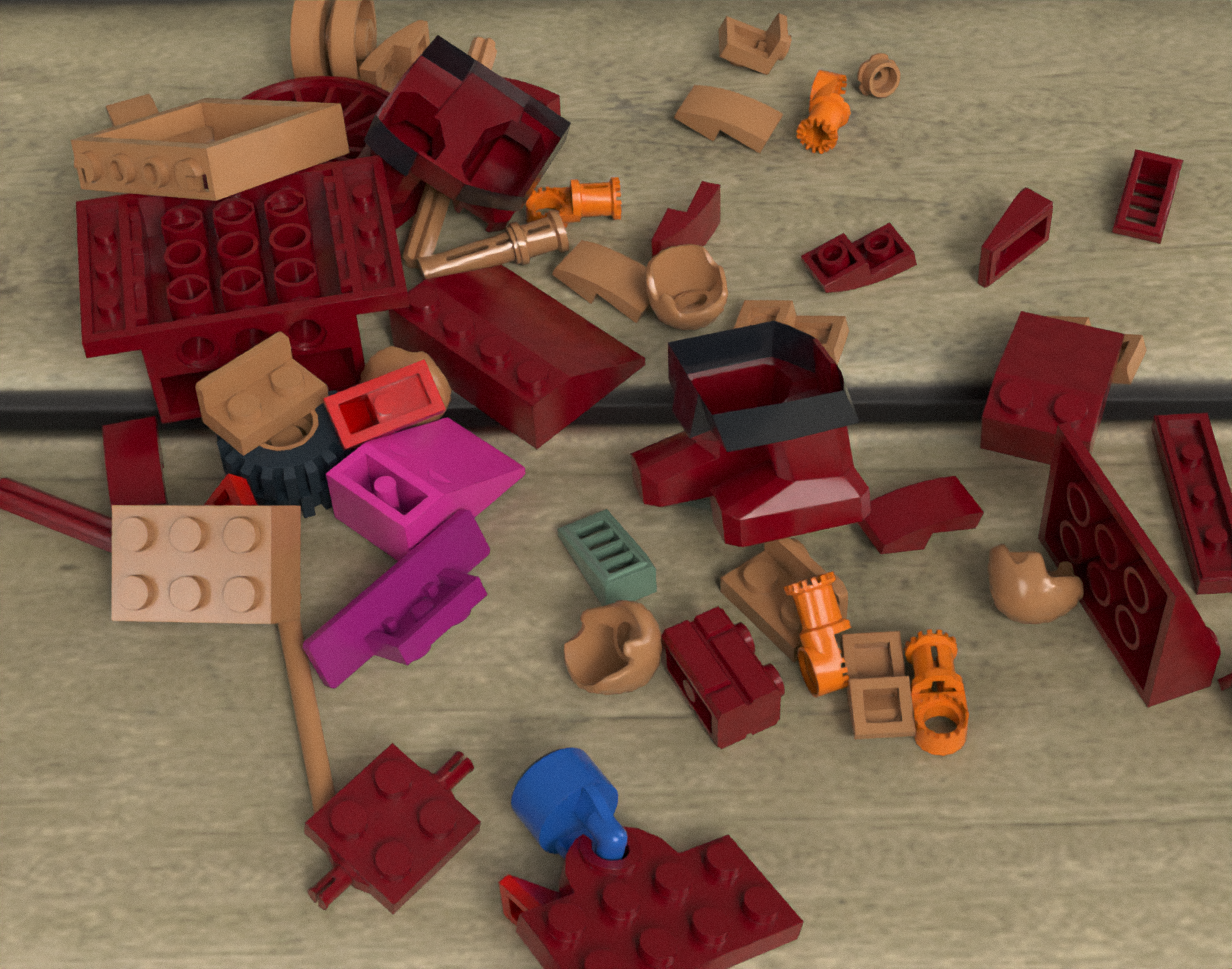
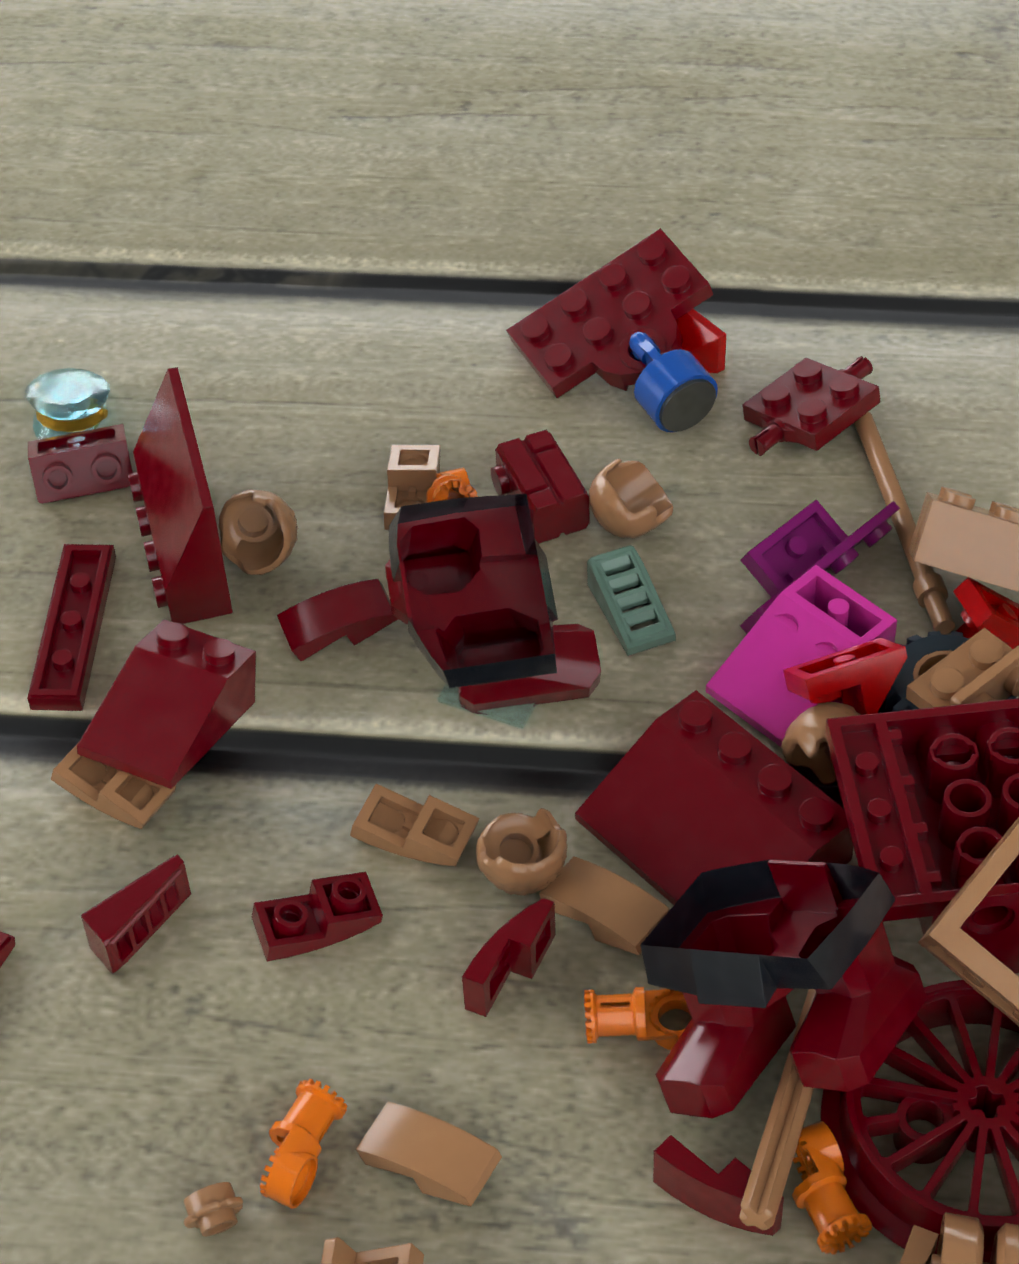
camera: 175 degrees left, 0 degrees up
(949, 698) = (365, 472): orange connector -> none

